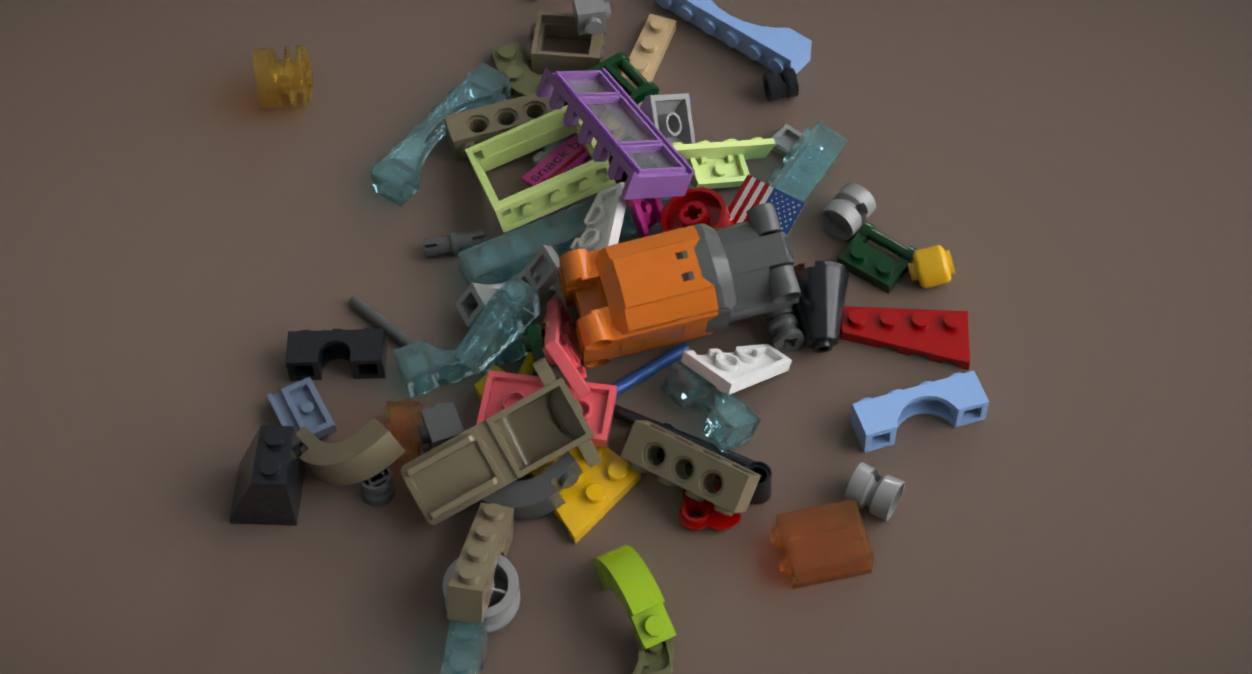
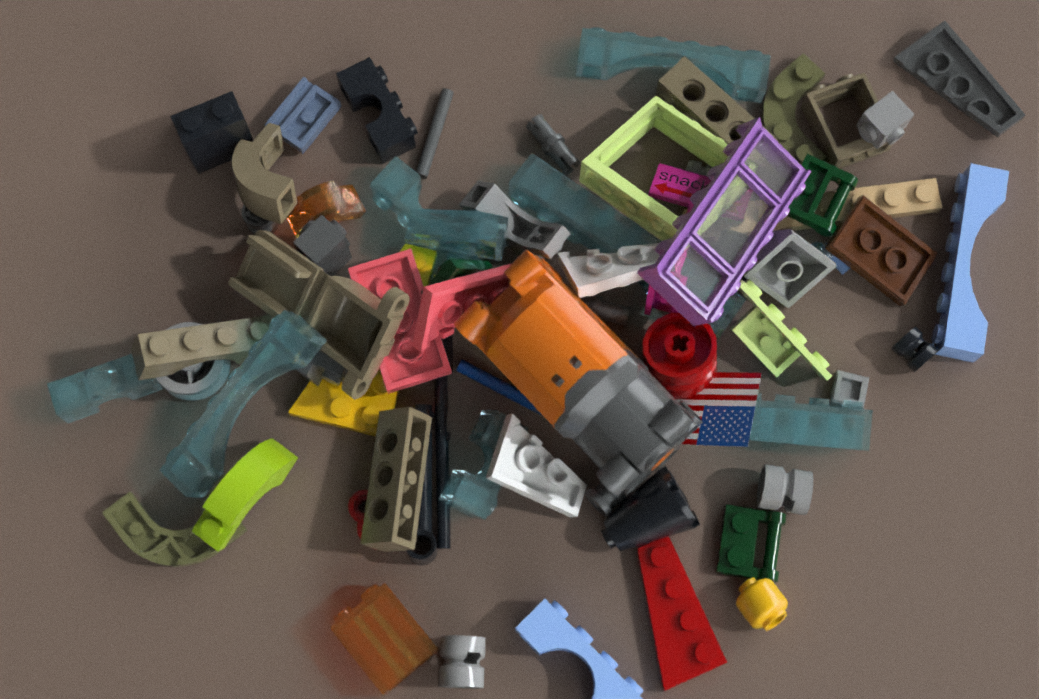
camera: 60 degrees right, 20 degrees up
(580, 618) = (201, 455): none -> clear light blue arch
(688, 69) = (881, 250): none -> reddish brown tile

